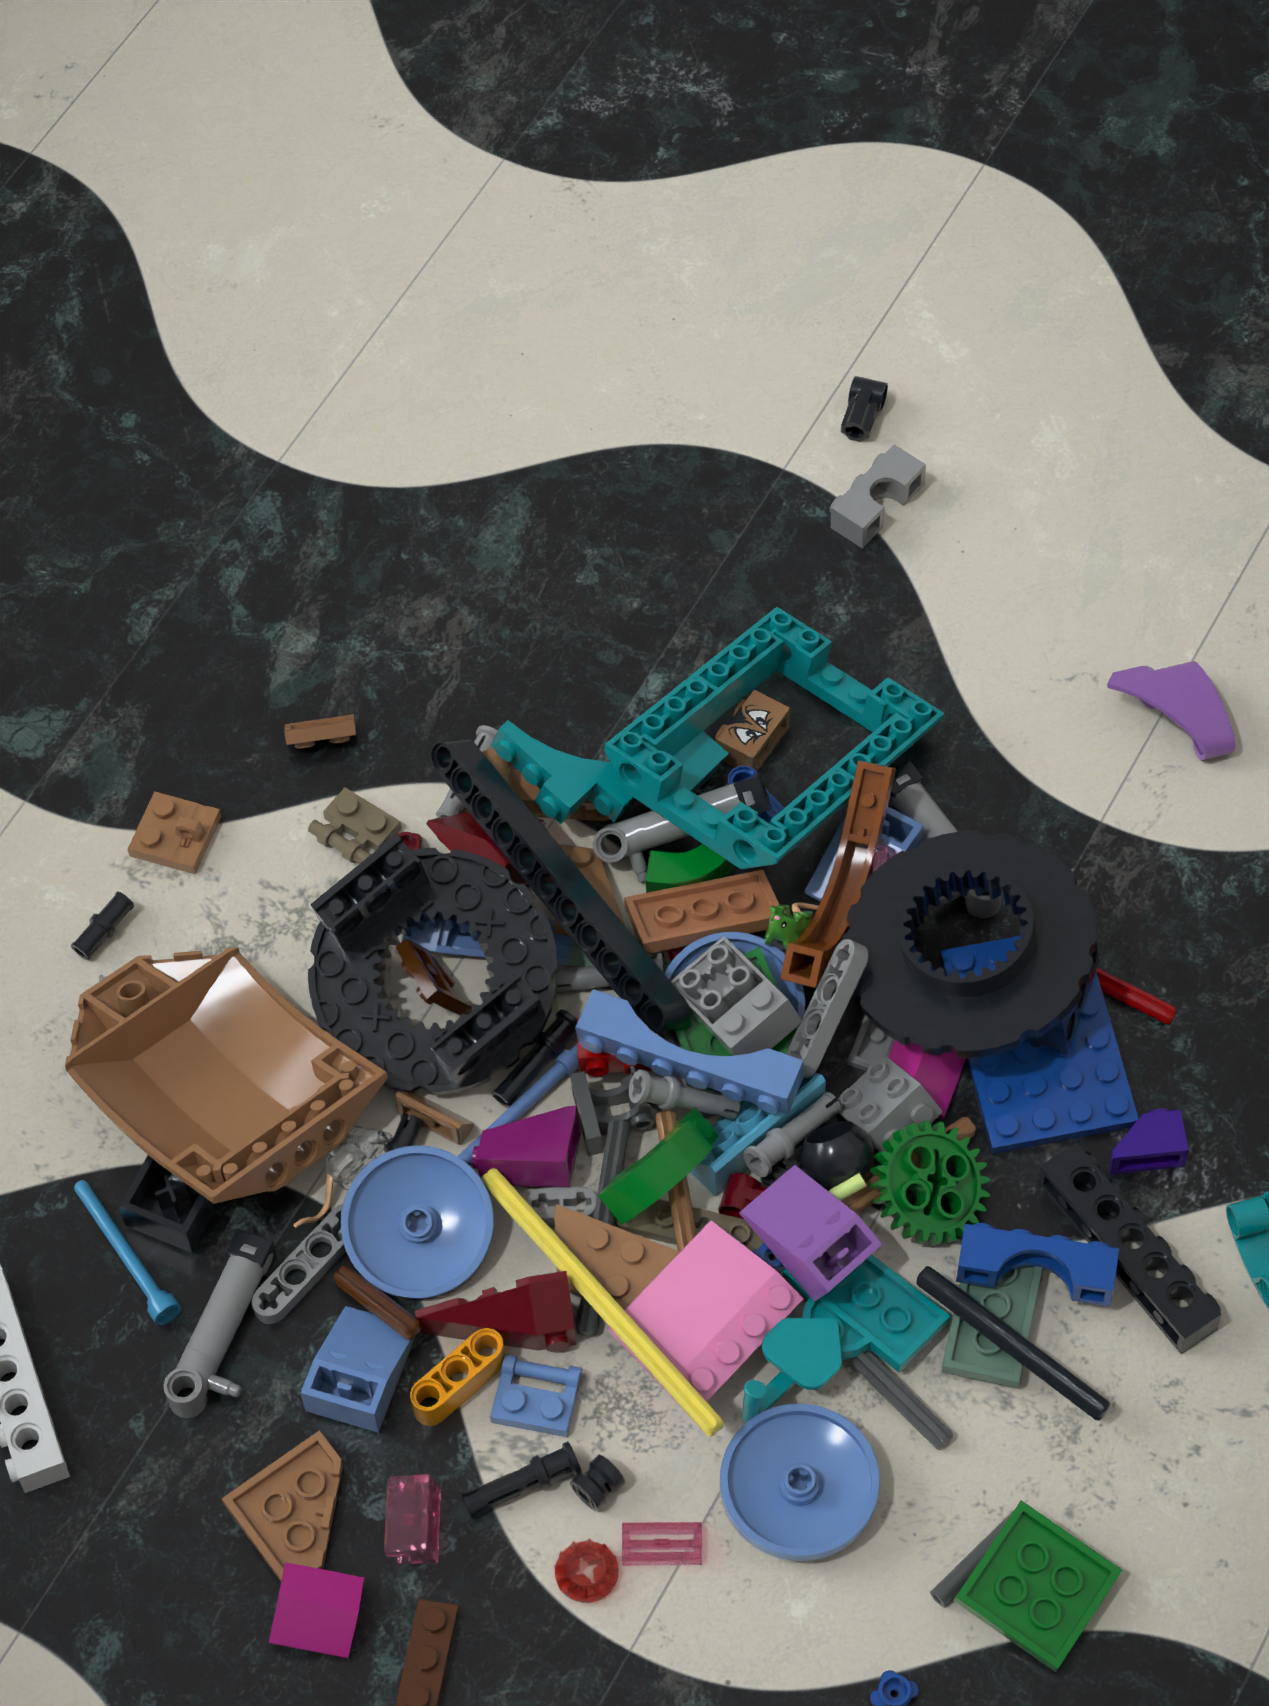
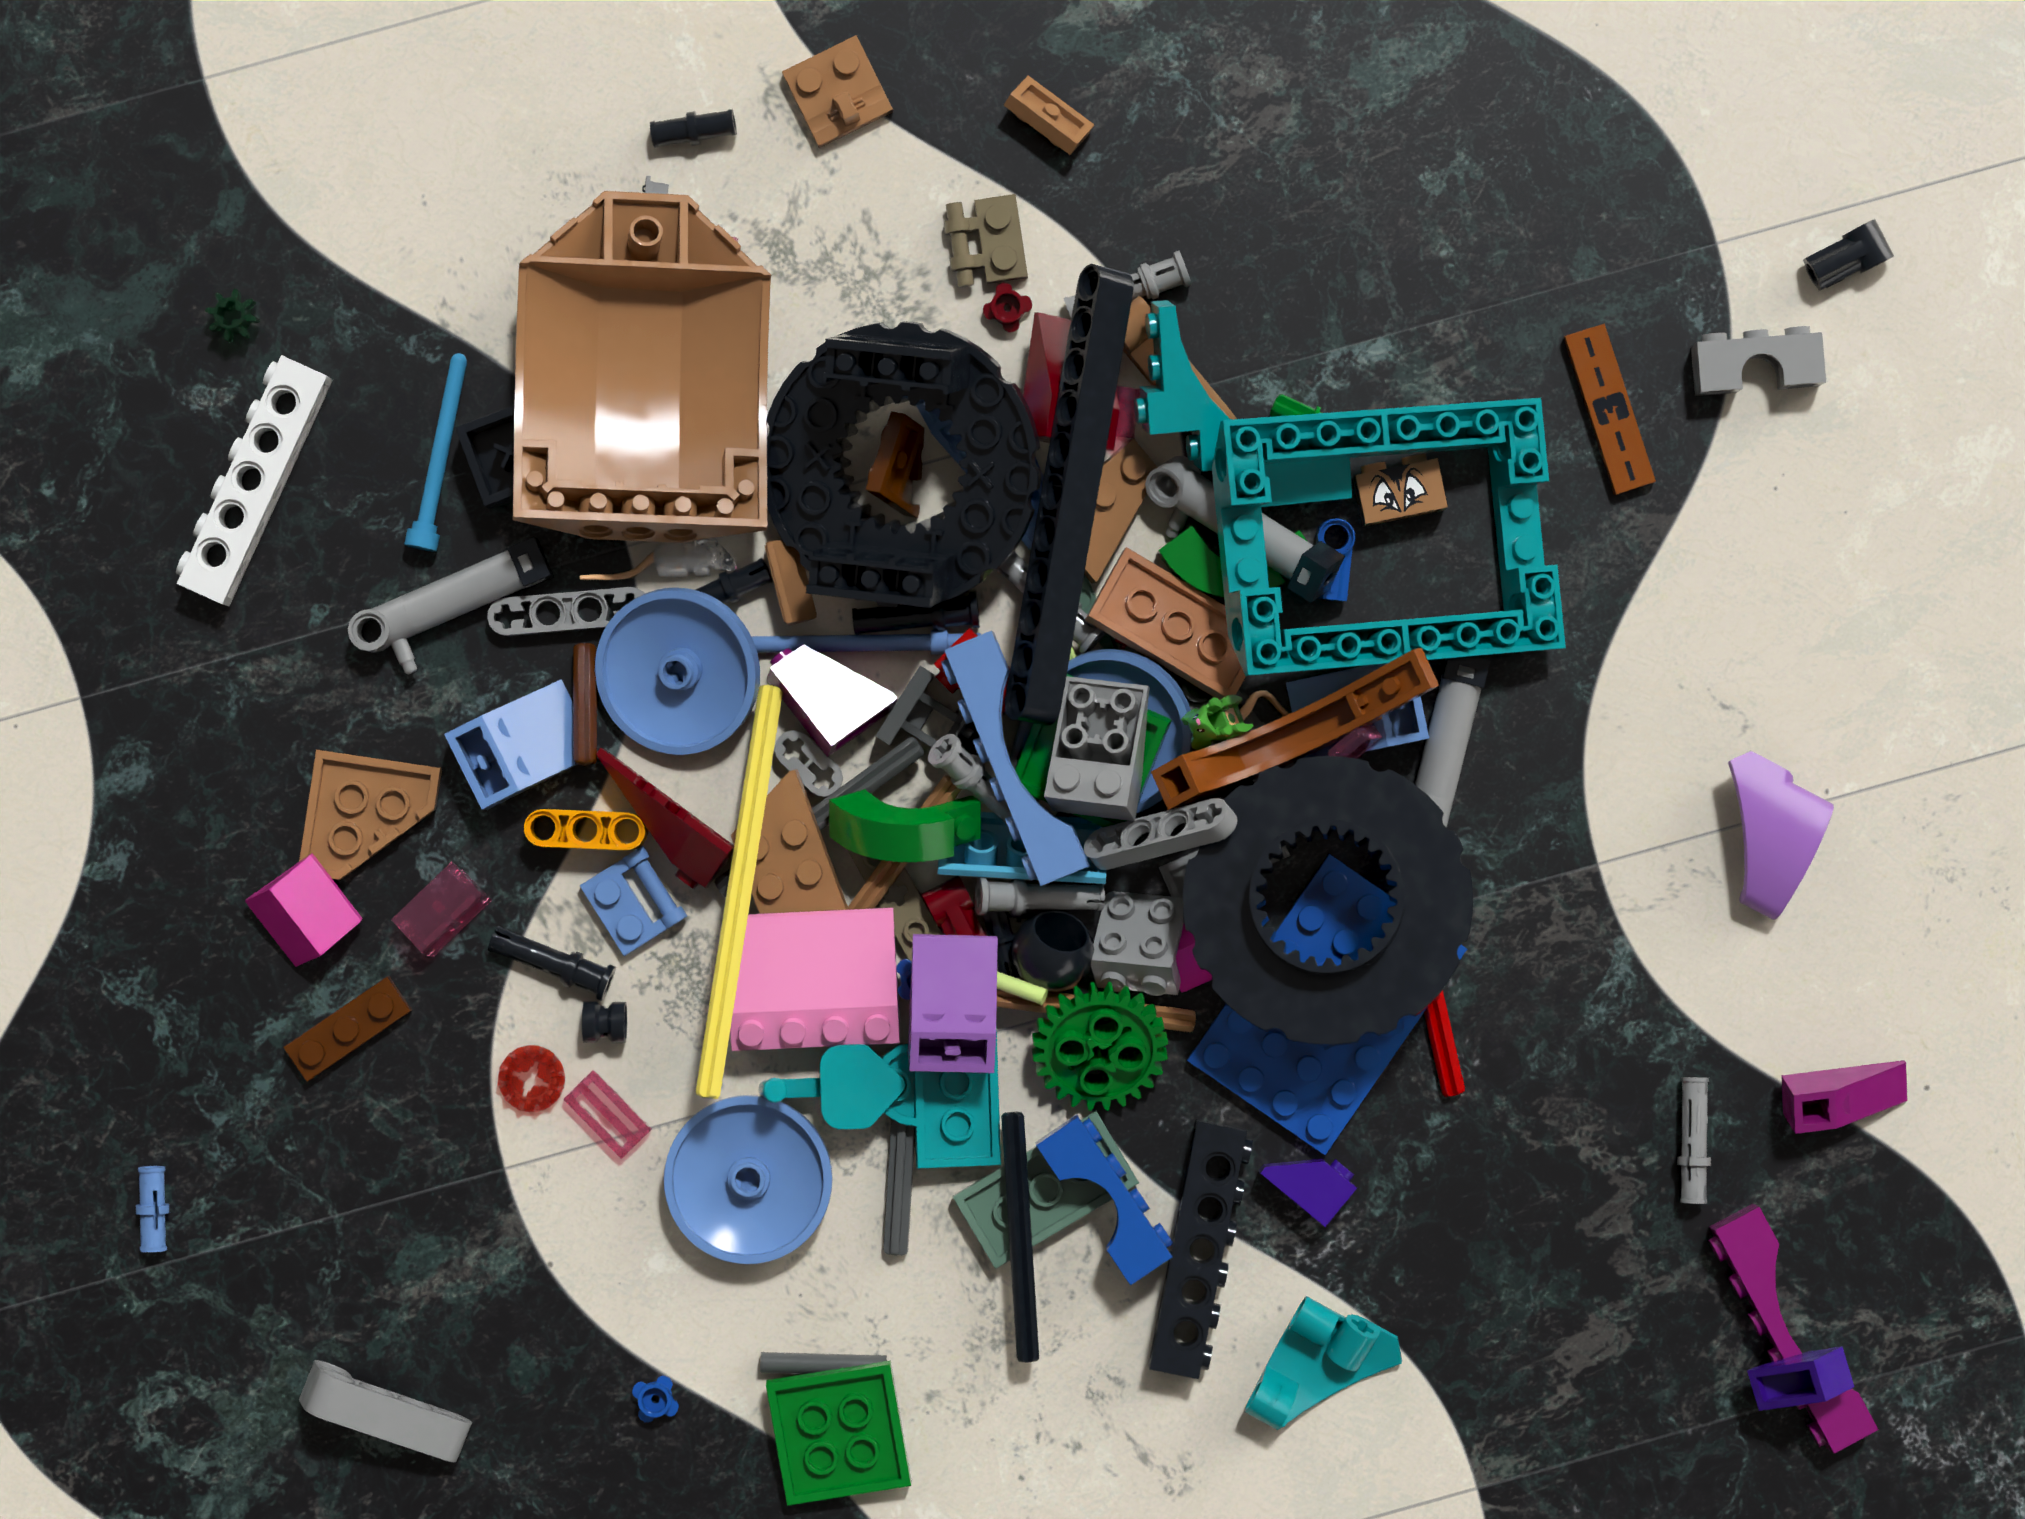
camera: 40 degrees right, 30 degrees up
(823, 592) = (1609, 409): none -> dark orange tile

